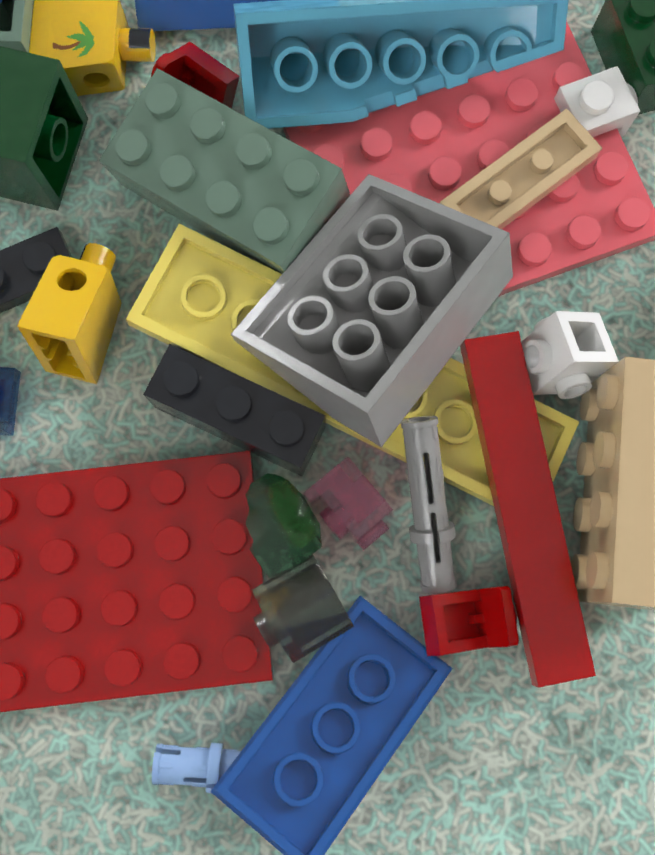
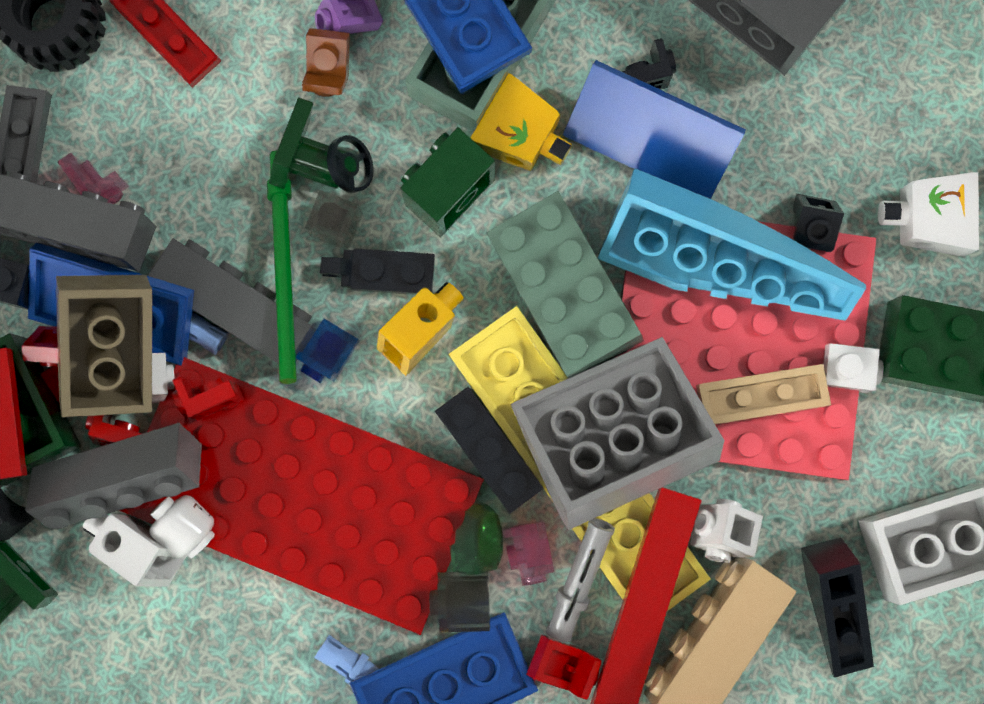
camera: 30 degrees right, 5 degrees up
(200, 71) = (583, 199): red bracket -> none

